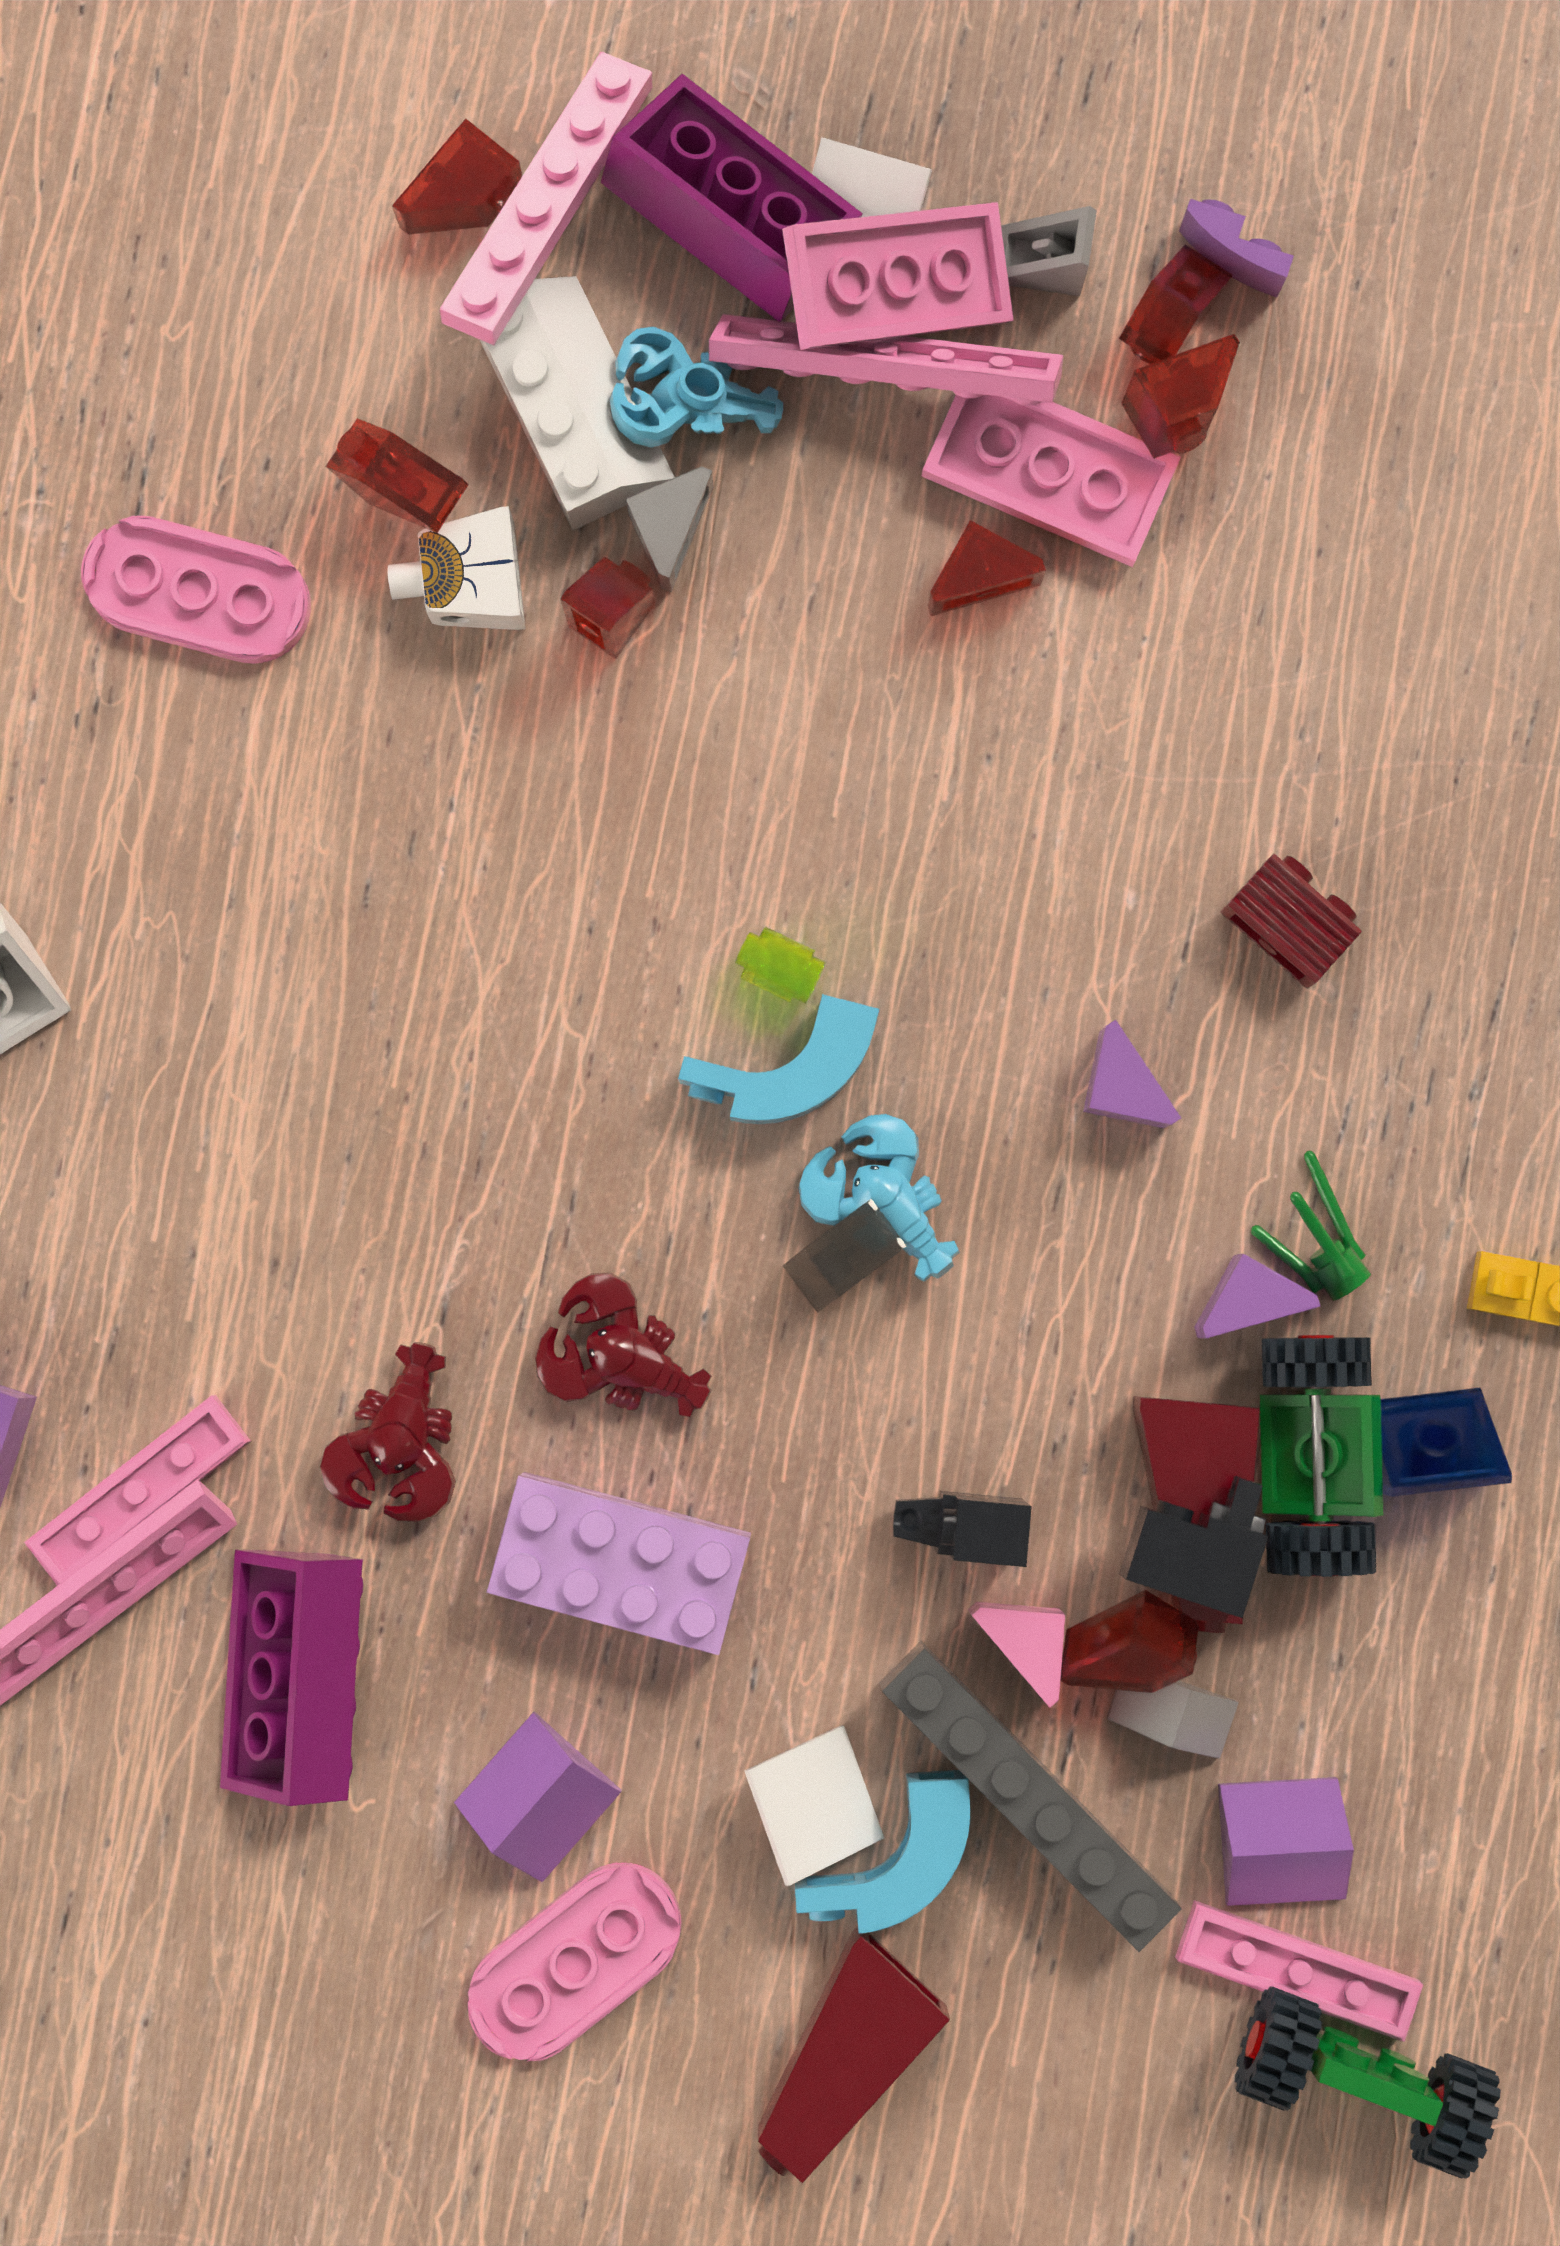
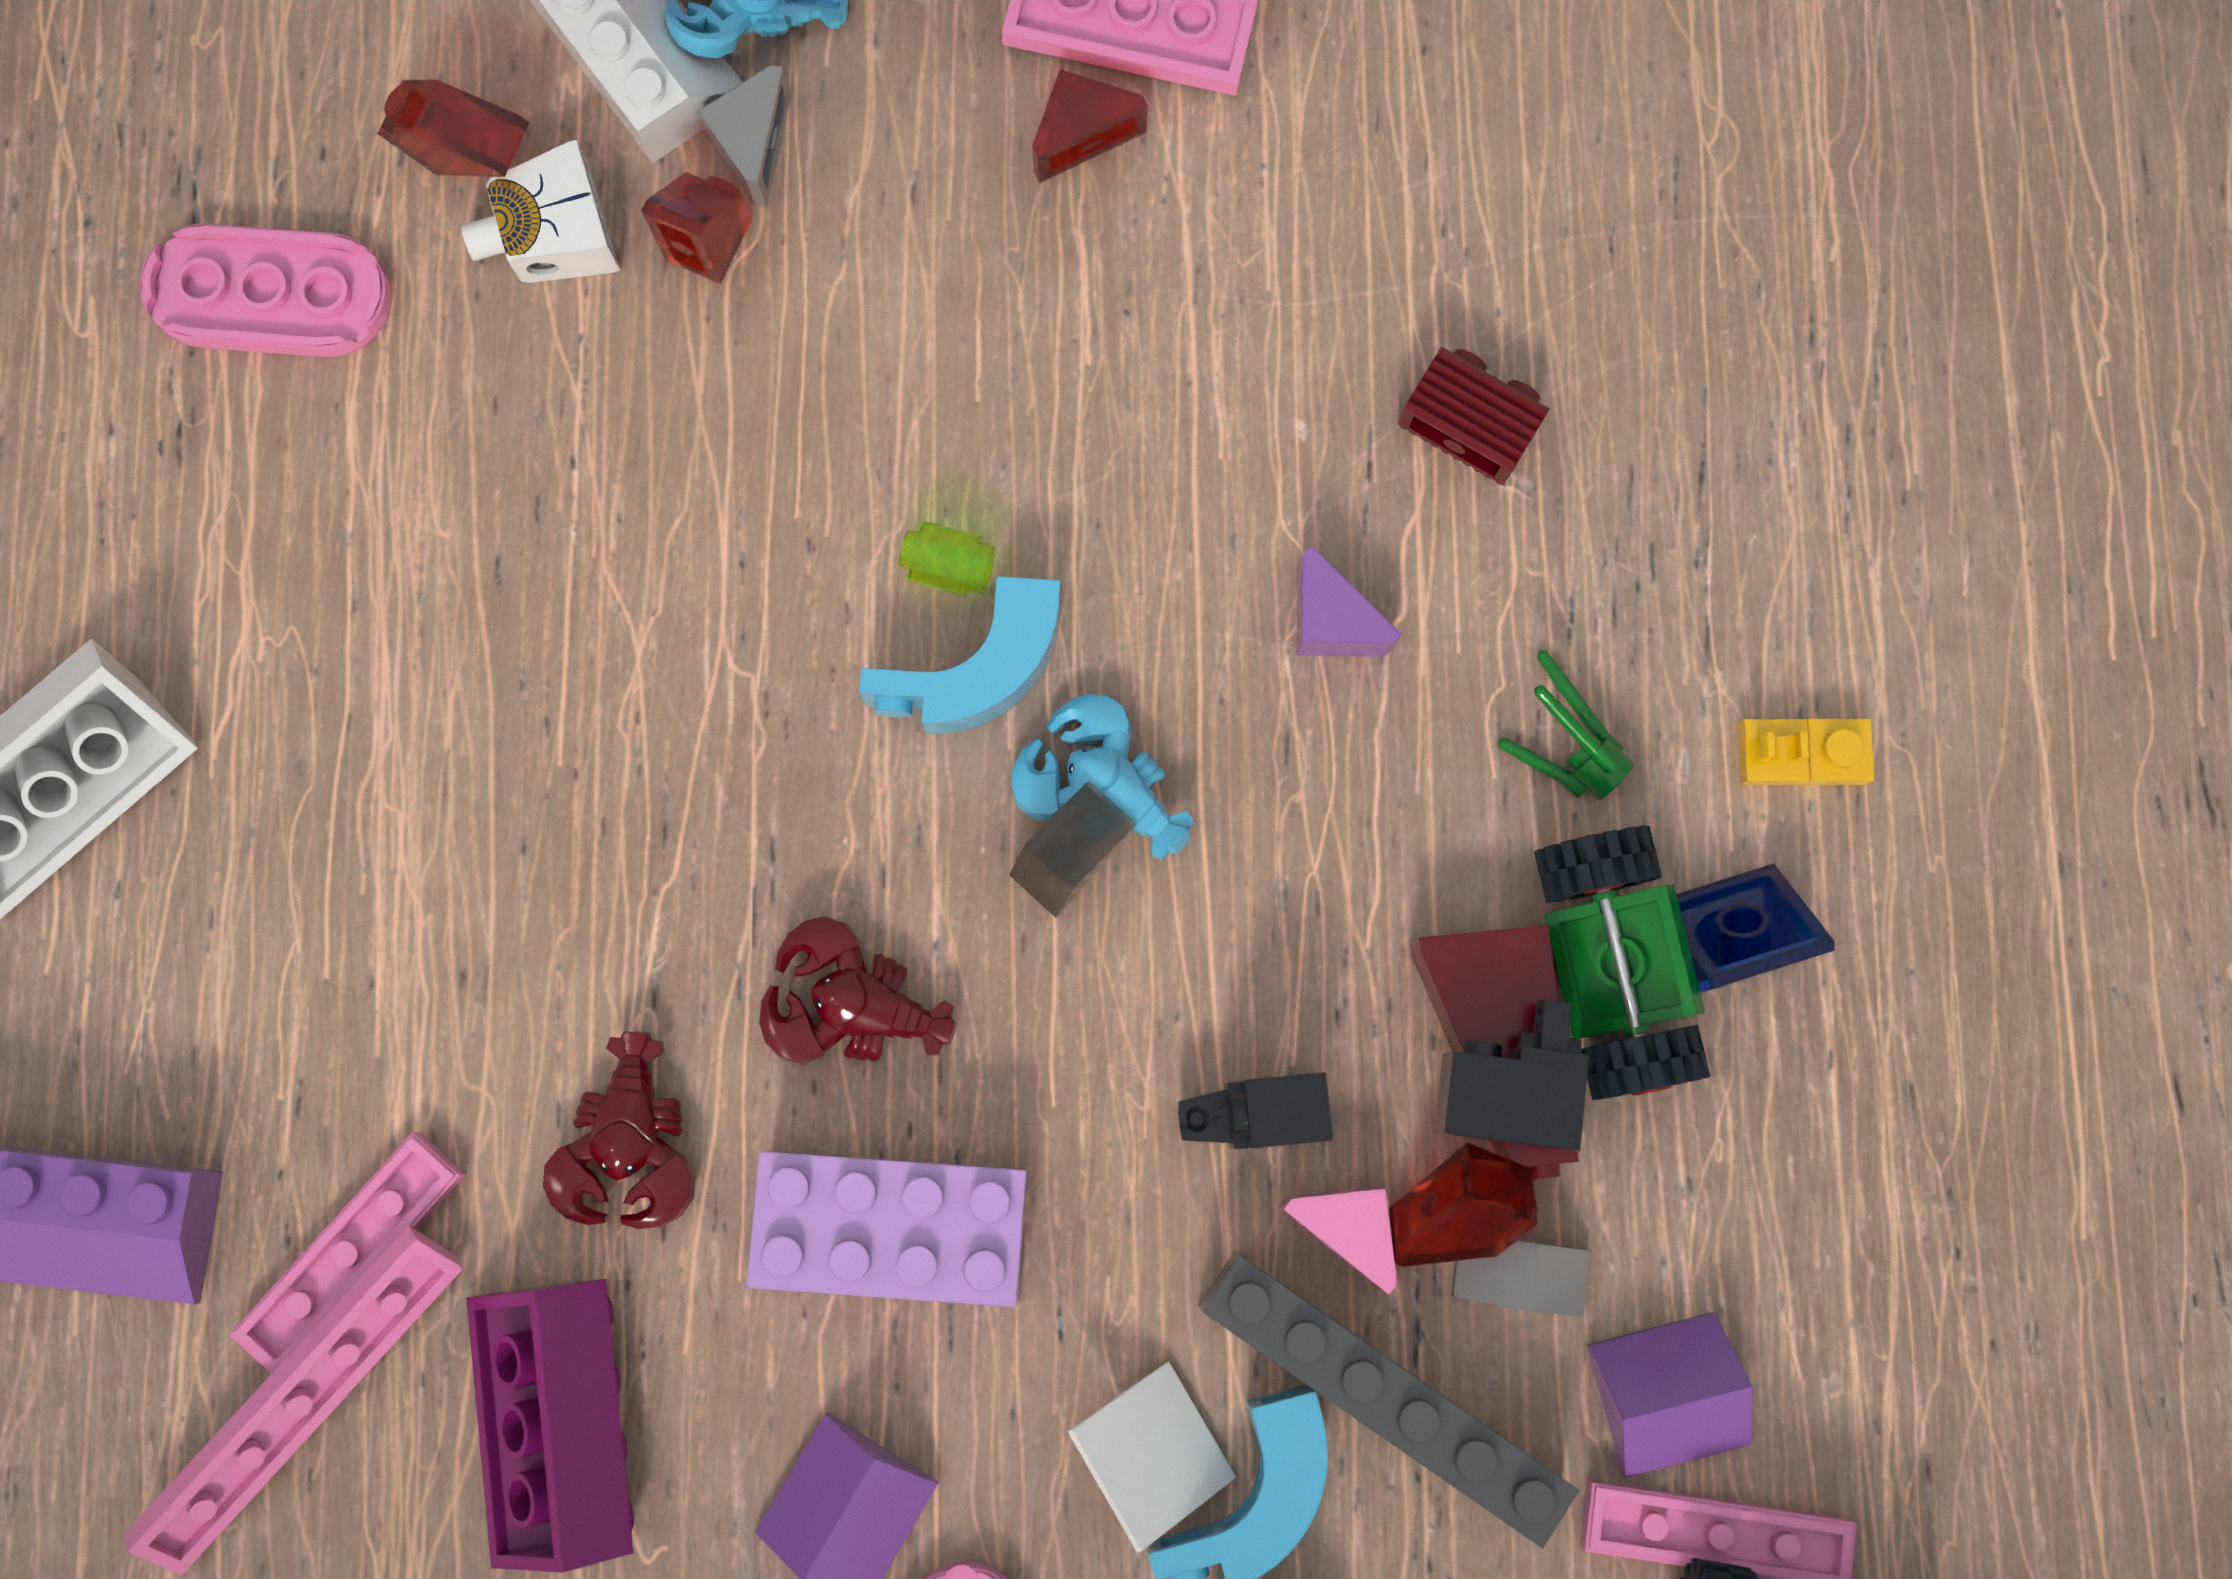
camera: 15 degrees left, 5 degrees down
(1250, 1296) = (1513, 809): medium lavender slope -> none

